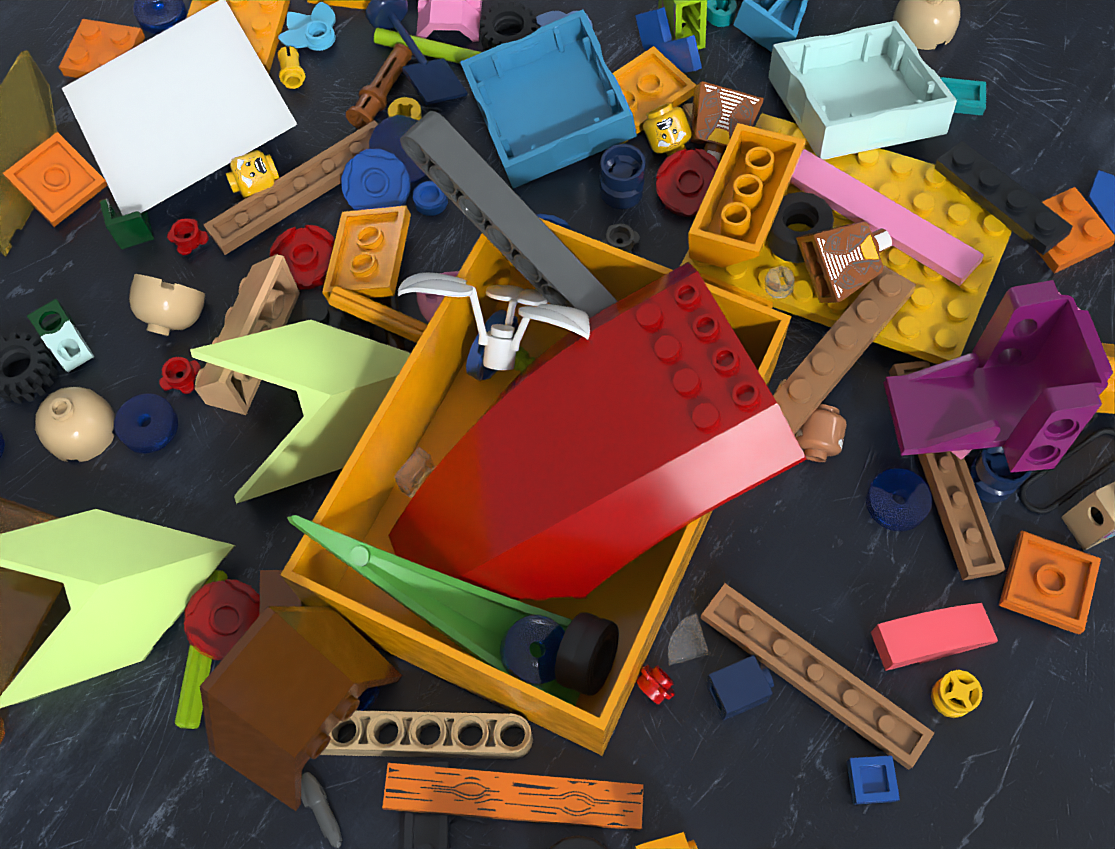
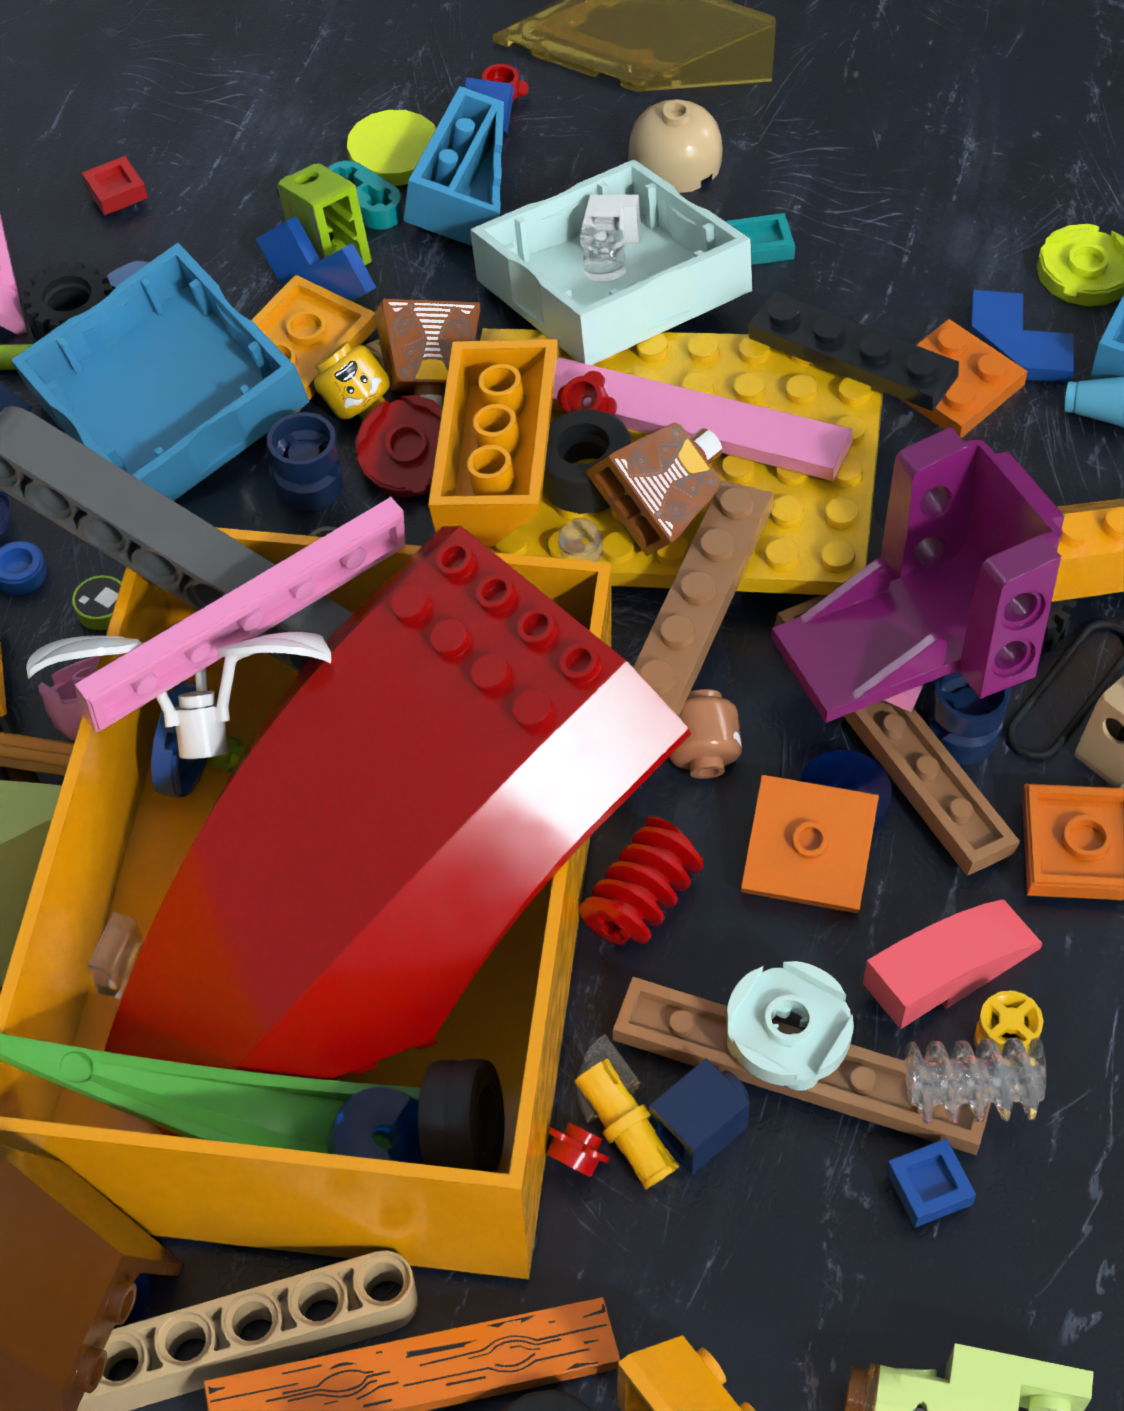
camera: 20 degrees left, 10 degrees down
(466, 235) = (95, 601): none -> tile
(545, 287) = (241, 615): none -> bright pink tile
(691, 679) = (626, 1123): none -> yellow pin
(749, 521) = (641, 883): none -> red piece
(813, 673) = (780, 1057): none -> light aqua plate
(819, 176) = (581, 387): none -> red plate
(863, 64) = (606, 228): none -> clear leg
(866, 528) = (810, 844): none -> orange plate
(925, 727) = (976, 1078): none -> clear piece

